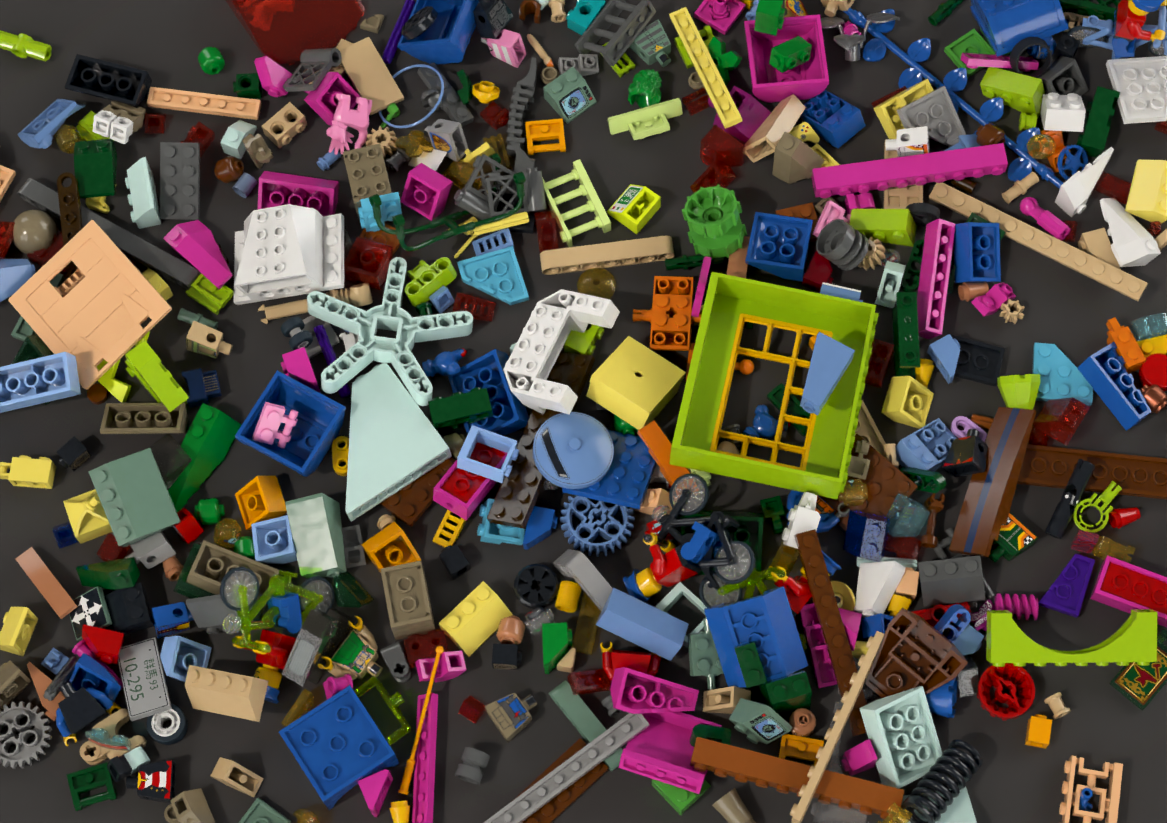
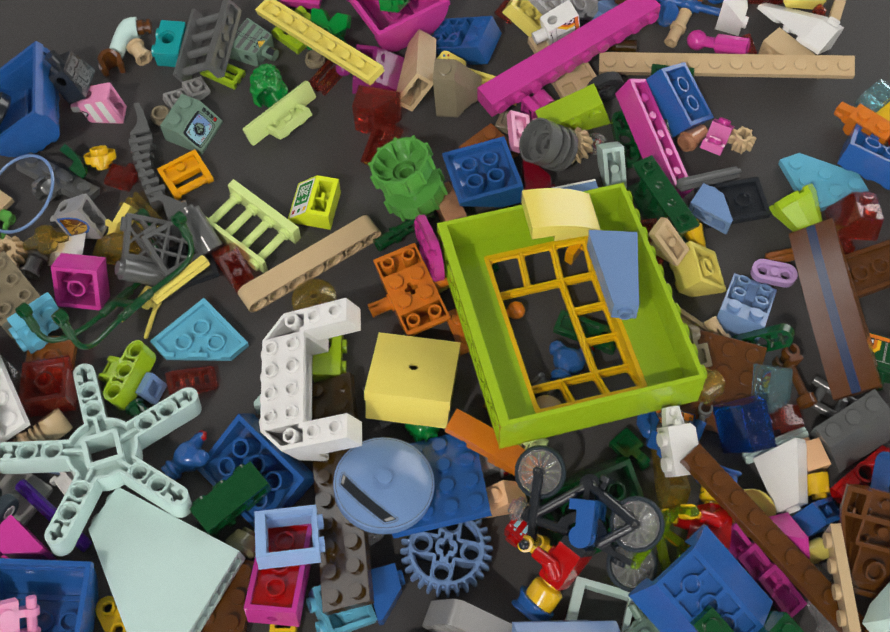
camera: 30 degrees left, 5 degrees down
(499, 235) = (183, 294): medium blue slope -> none
(541, 52) = (138, 96): tan piece -> none
(808, 307) = (558, 213): none -> light yellow slope
(888, 368) = (668, 242): none -> tan slope
(960, 331) = (708, 178): none -> dark grey axle
(966, 455) = (791, 294): black torso -> none

